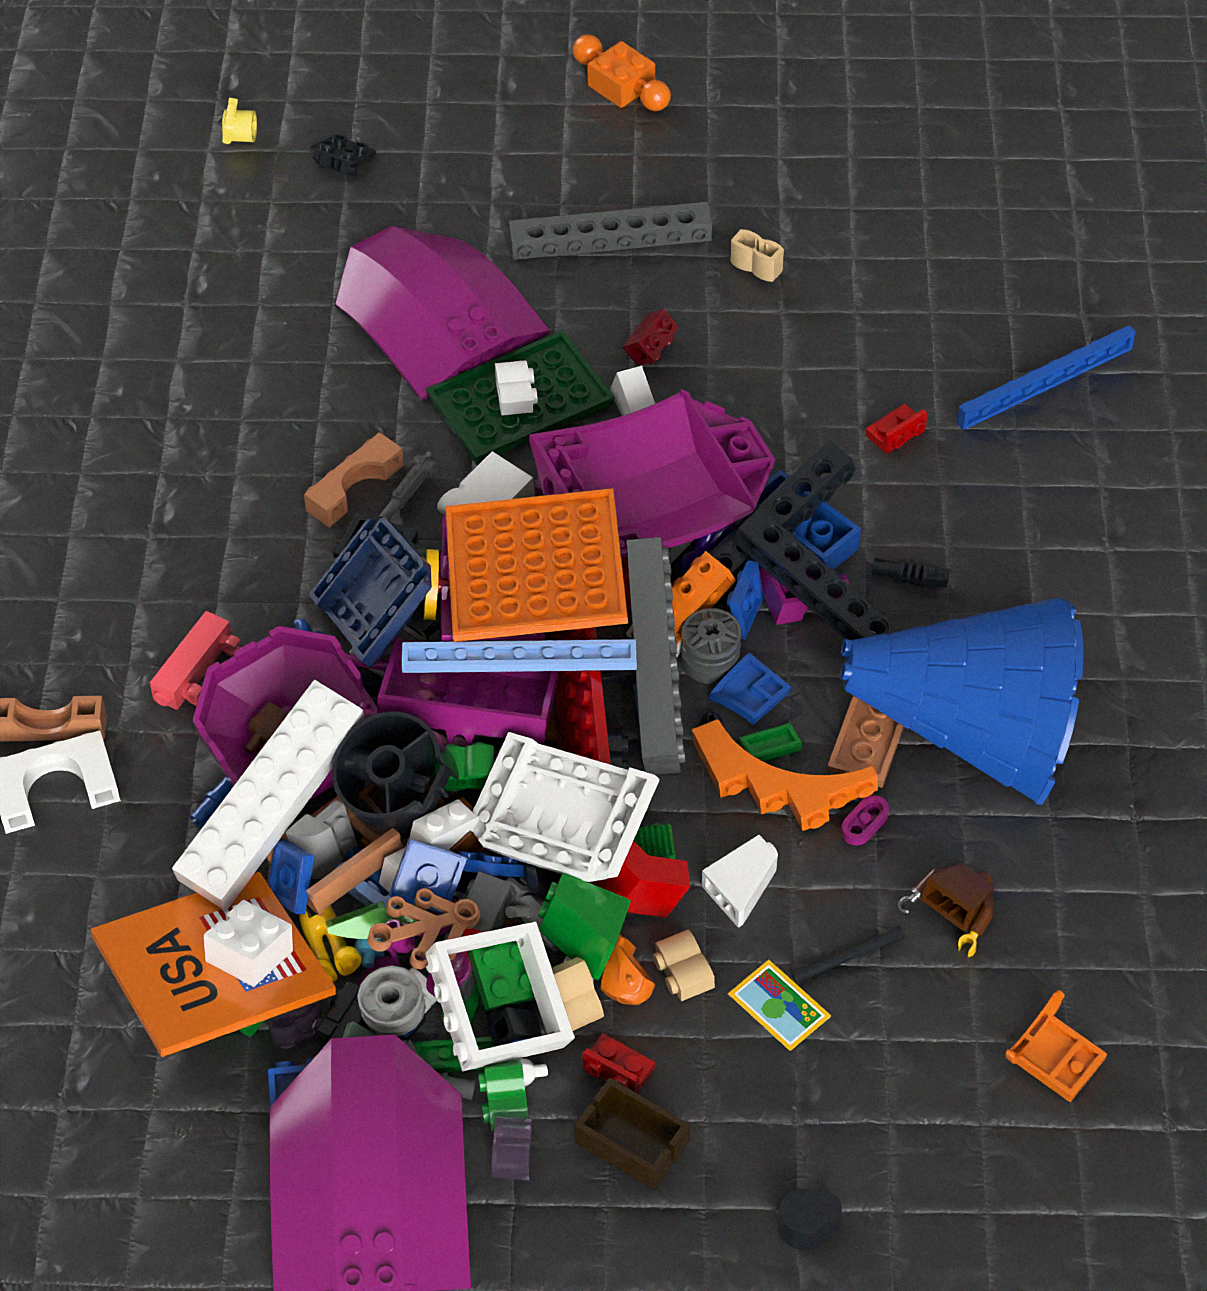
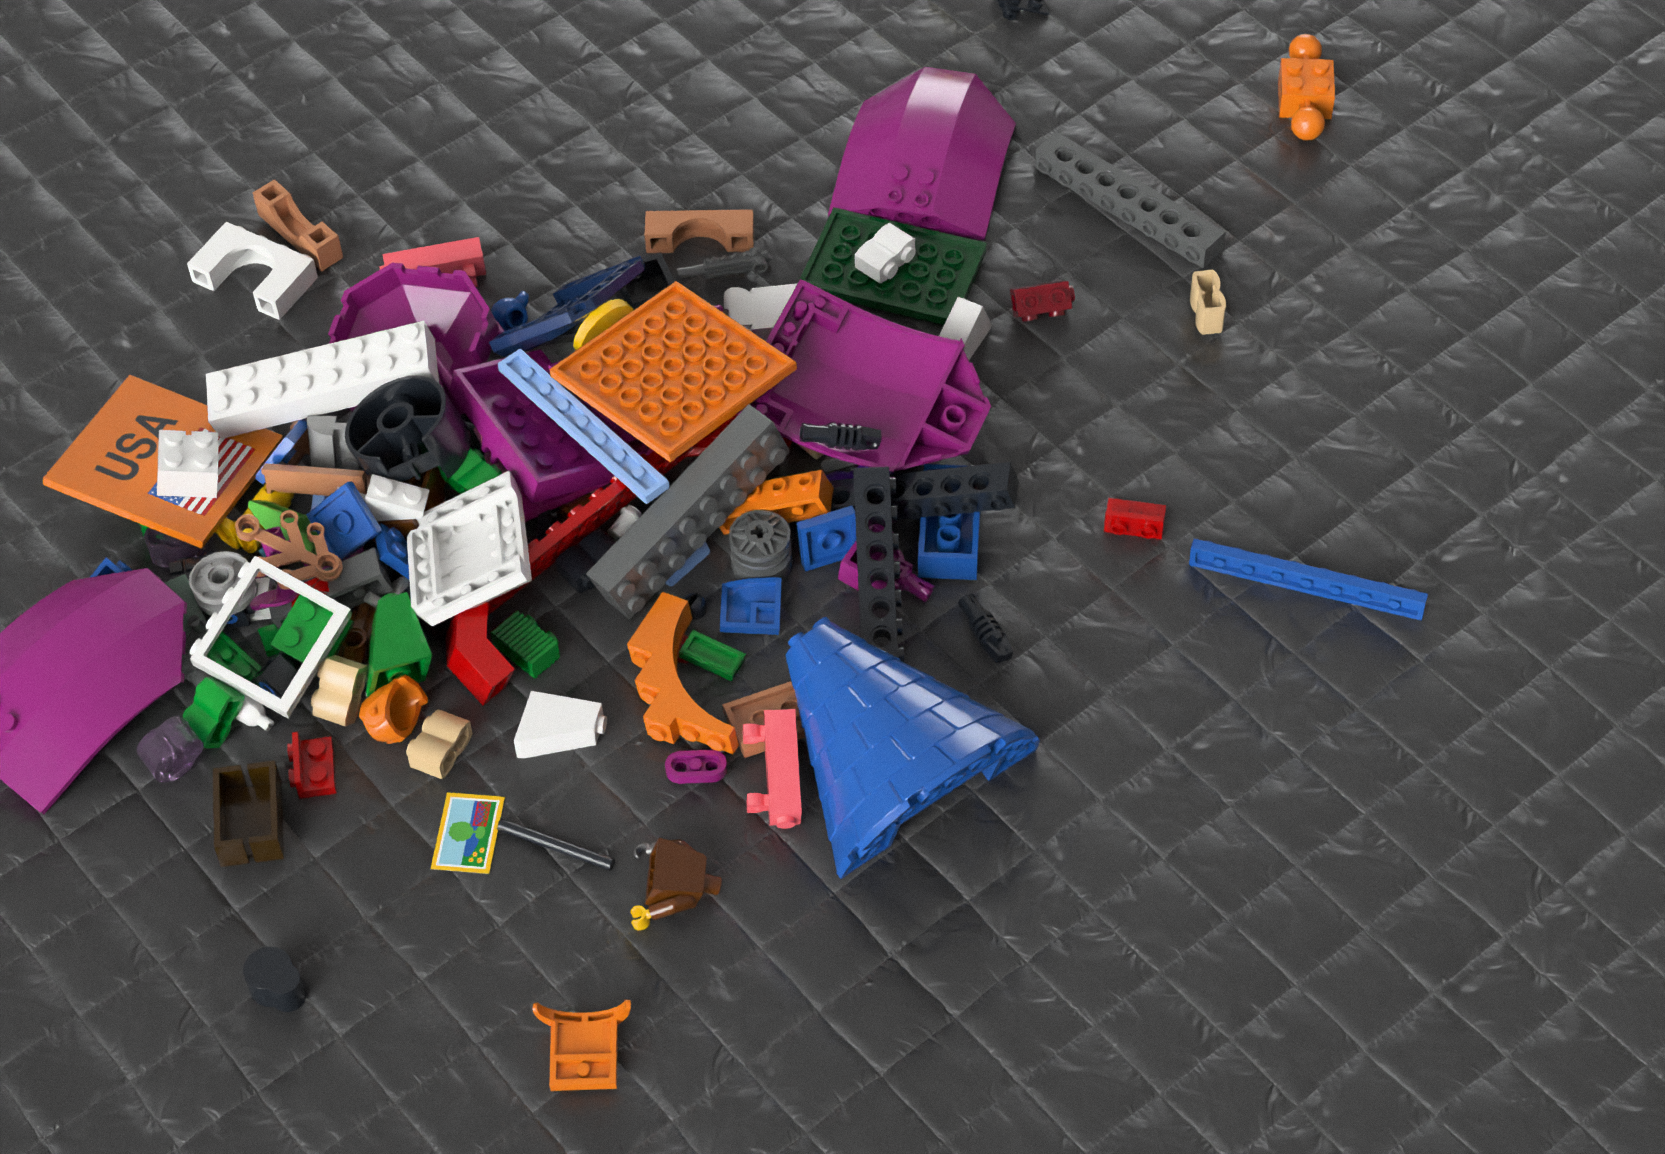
camera: 50 degrees right, 0 degrees up
(689, 518) = (841, 436): none -> black hinge
(925, 768) = (782, 768): none -> coral brick

